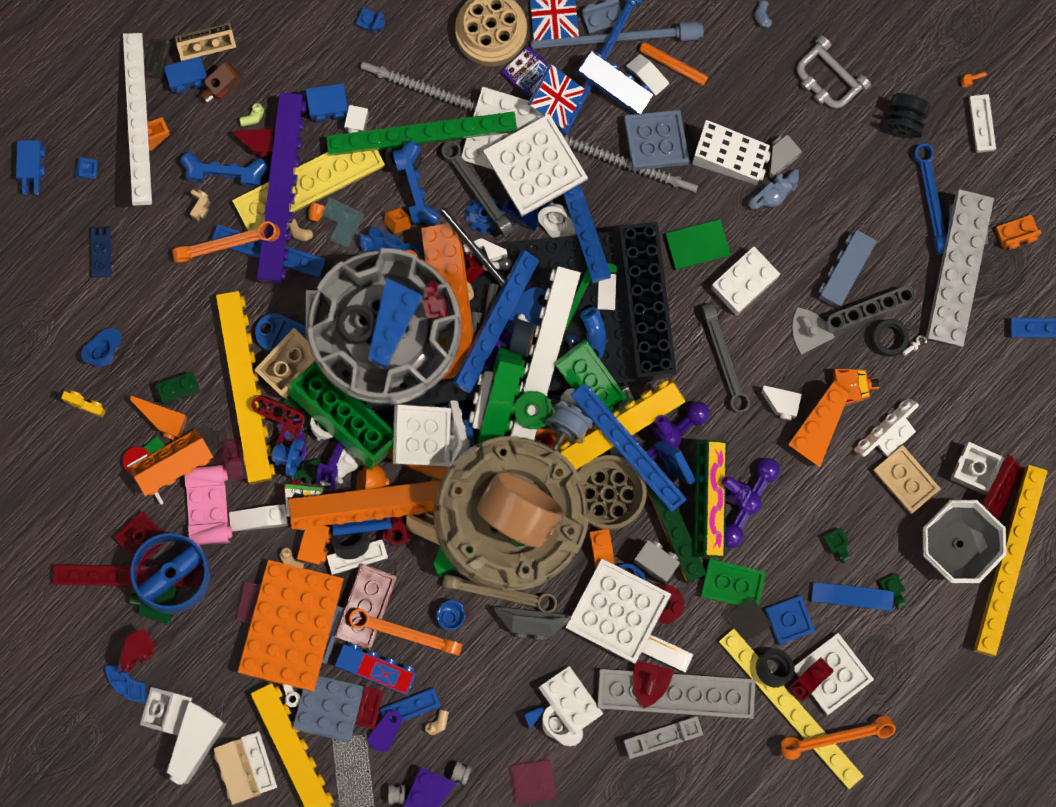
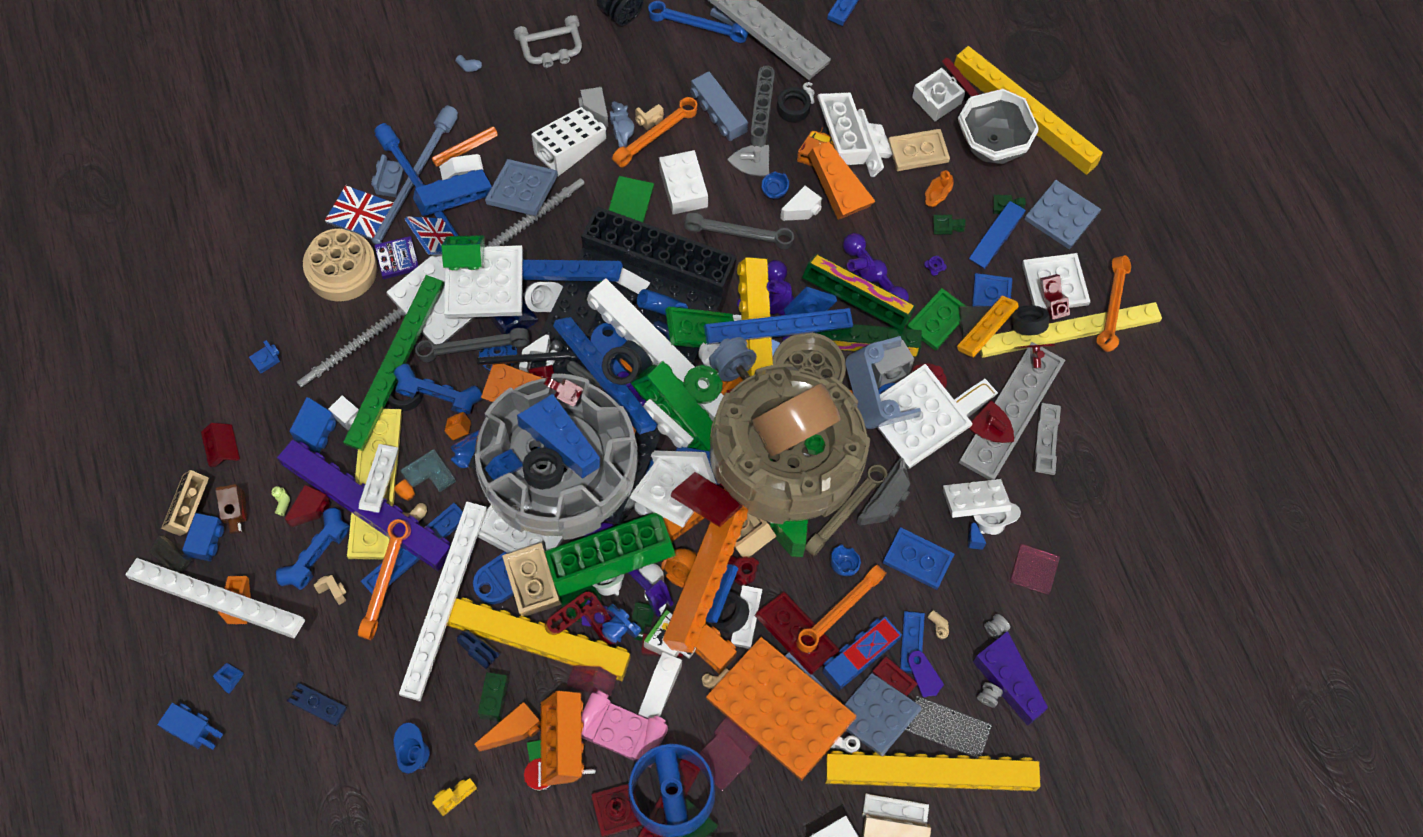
camera: 60 degrees left, 15 degrees down
(212, 351) = (477, 648): none -> dark blue arm
(225, 600) = (724, 759): none -> clear pink tile
(230, 302) = (442, 602): none -> white plate
(273, 34) = (219, 443): none -> dark red panel
(307, 186) = (378, 478): none -> white plate
(346, 290) = (503, 464): none -> blue bracket
(428, 467) = (706, 499): none -> dark red tile
(488, 677) = (918, 558): none -> blue plate
(489, 332) = (637, 365): none -> black tyre
(550, 131) = (463, 252): none -> green slope
(632, 536) = (864, 386): none -> sand blue windscreen
(743, 687) = (1037, 354): none -> dark red shield
(745, 212) = (624, 155): none -> orange piece
(746, 632) = (987, 326): none -> light orange plate
(784, 555) = (935, 260): none -> dark purple plate
(789, 366) = (775, 185): none -> blue hair
(800, 216) = (650, 118): none -> tan bracket
(872, 519) = (939, 189): none -> orange arm
(885, 397) = (845, 127): none -> white slope
(913, 647) = (1062, 214): none -> sand blue plate

